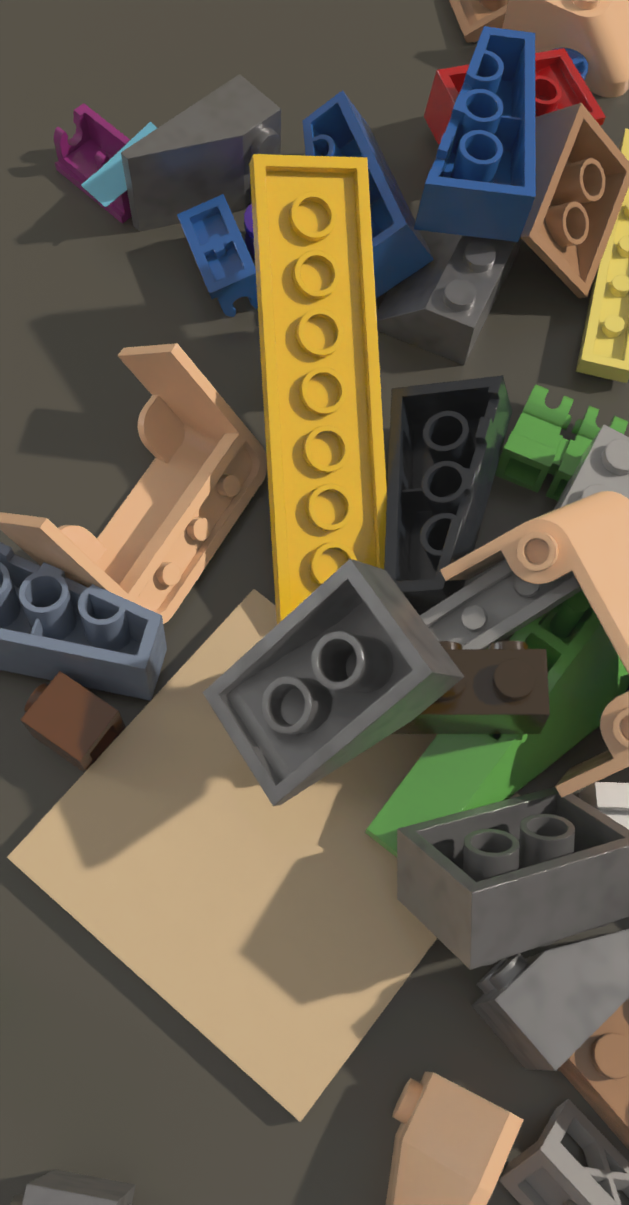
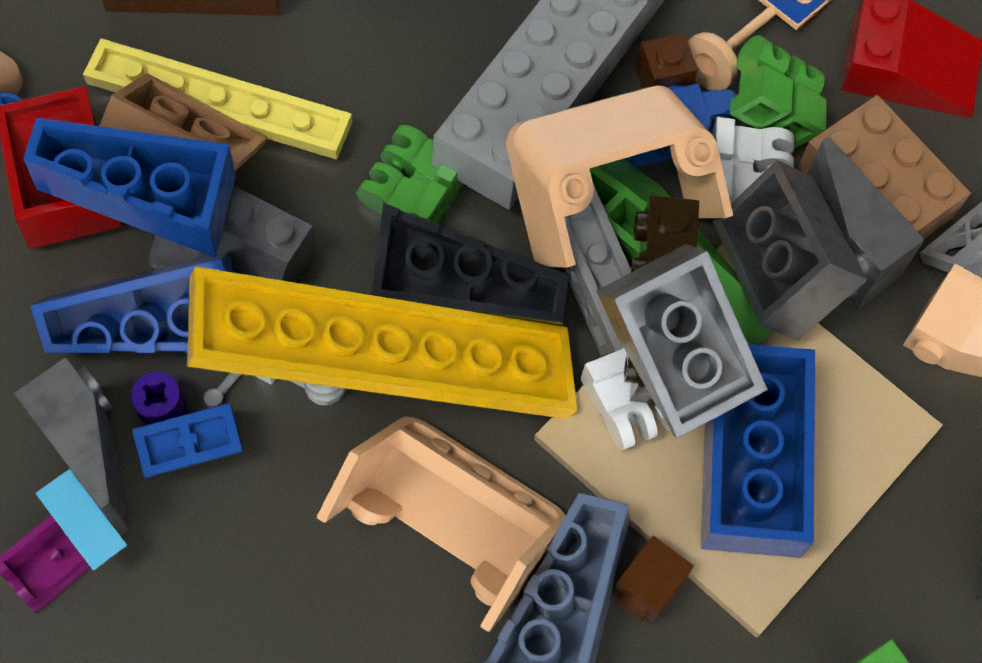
camera: 85 degrees left, 0 degrees up
(216, 841) = (763, 462): none -> blue brick

